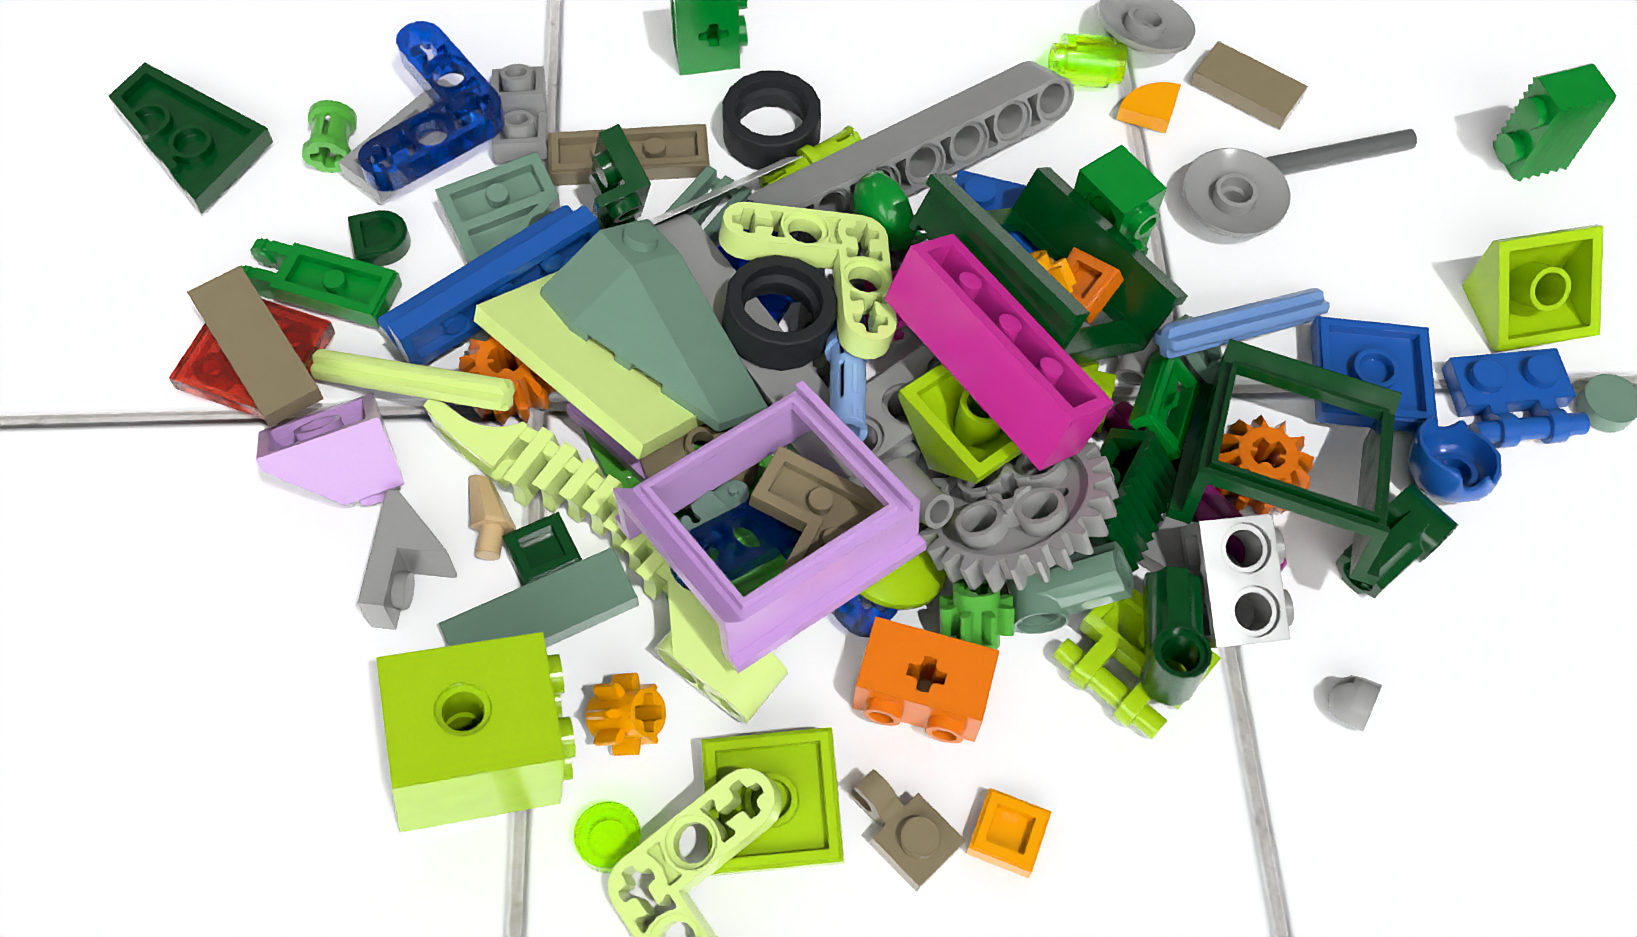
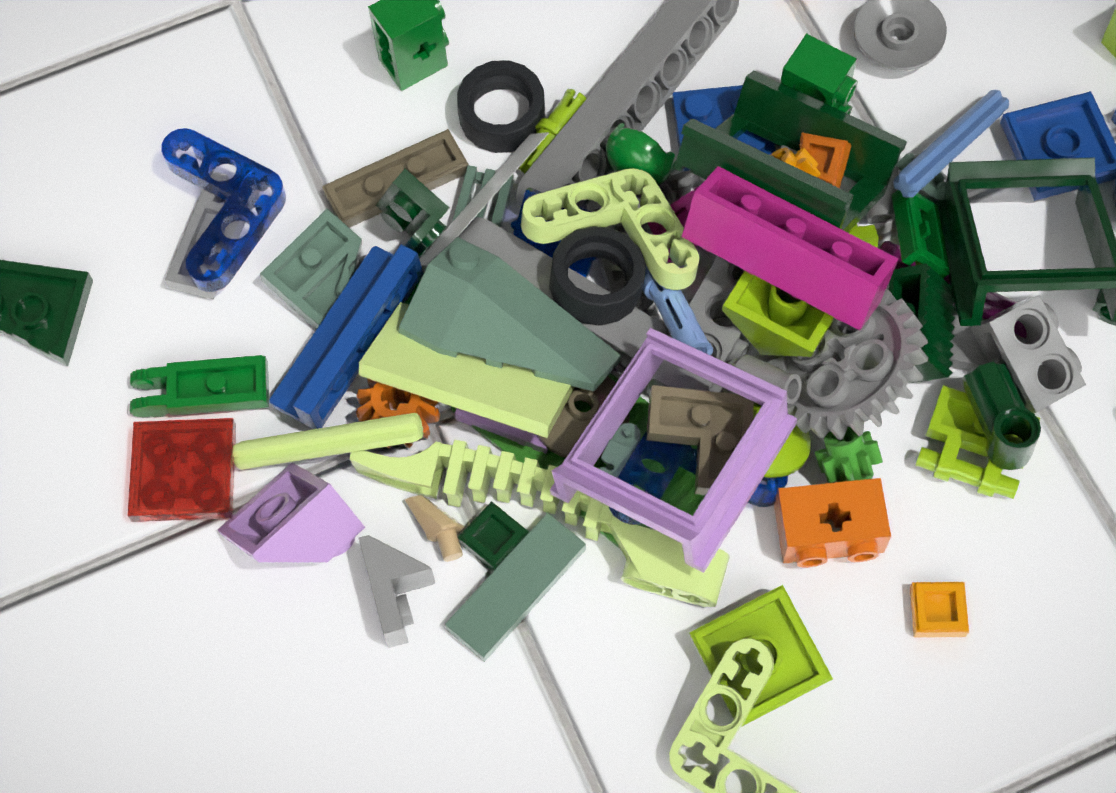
camera: 15 degrees left, 5 degrees up
(255, 346) = (186, 462): dark tan tile -> none
(329, 135) = (148, 241): bright green bush -> none
(379, 237) = (227, 330): dark green tile -> none
(475, 730) = (524, 693): lime brick -> none
(525, 112) = (285, 157): light grey slope -> none
(606, 835) = (650, 731): clear neon green tile -> none
(625, 714) = (623, 636): light orange gear -> none
(911, 836) = (871, 640): dark tan plate -> none
(1092, 583) = (930, 398): sand green piece -> none
(1266, 453) = (1014, 239): orange gear -> none

